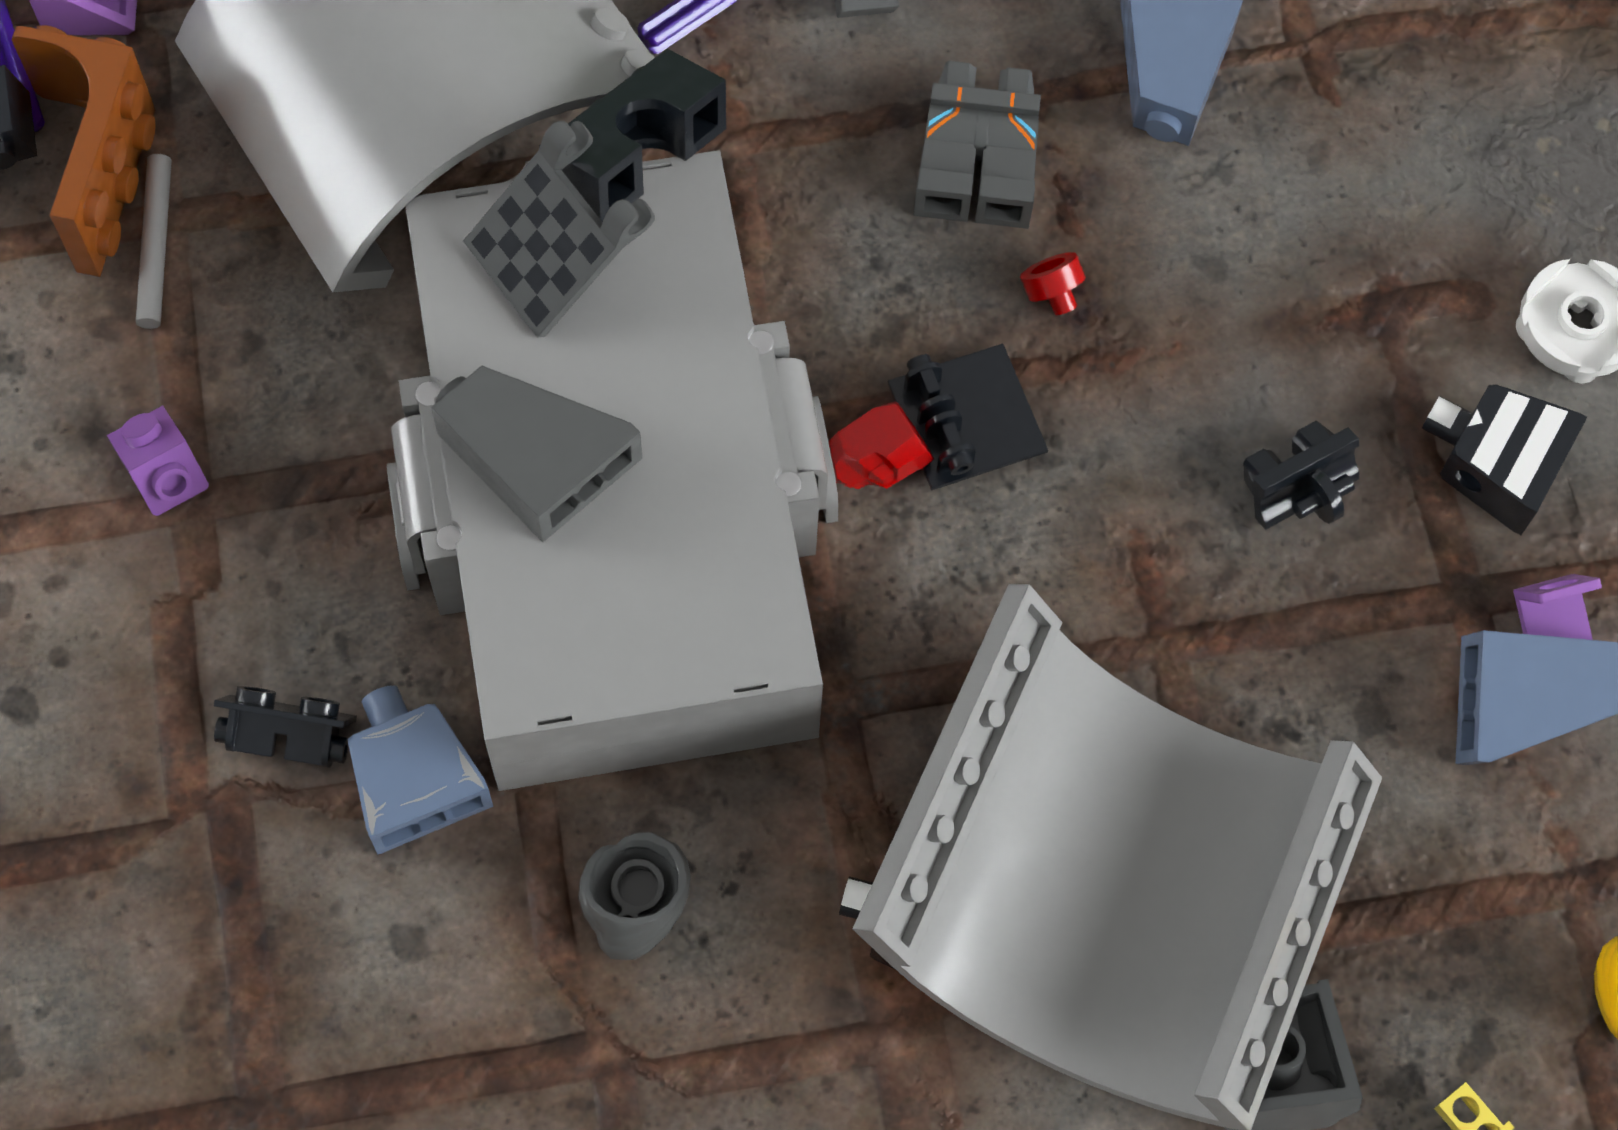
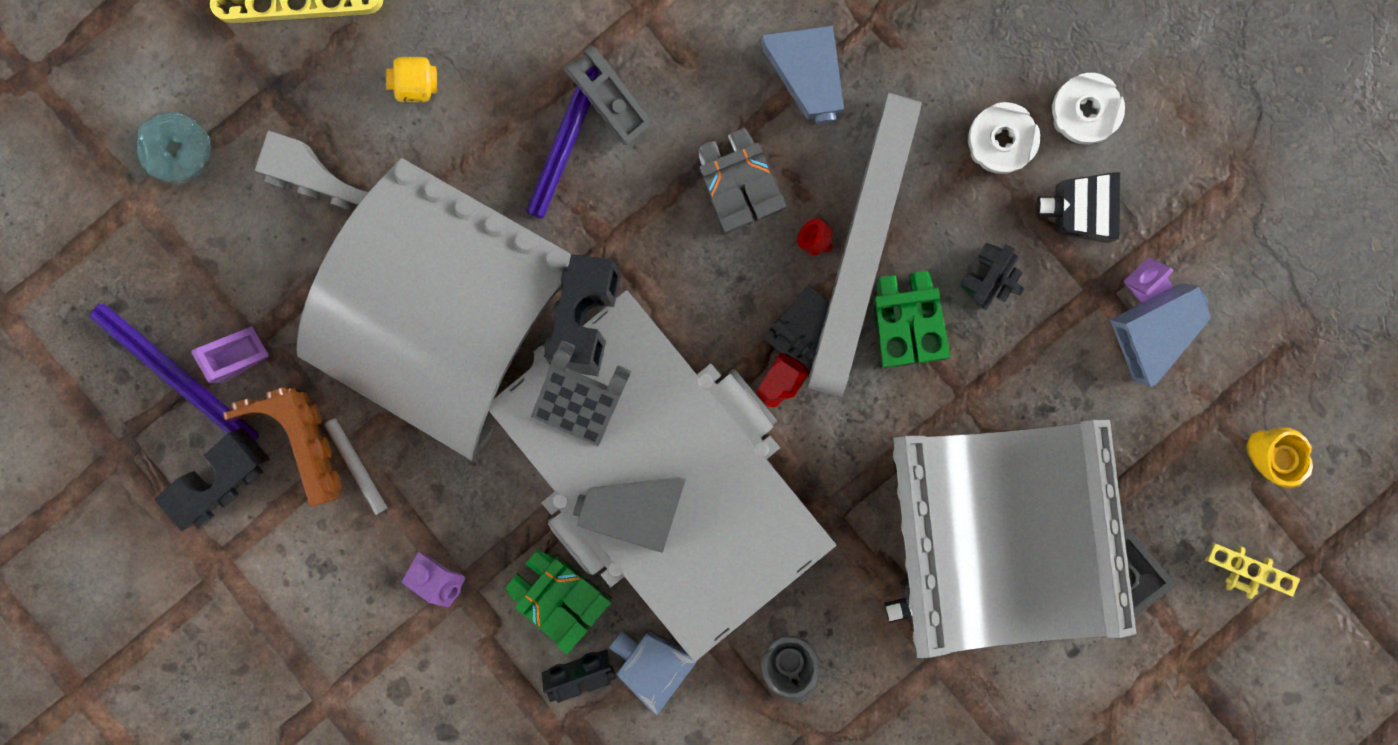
camera: 25 degrees left, 20 degrees up
(327, 565) = (546, 599): none -> green hips
(1116, 319) = (864, 245): none -> light grey beam
(1135, 451) = (914, 311): none -> green hips
(1421, 325) = (1020, 127): none -> white plate

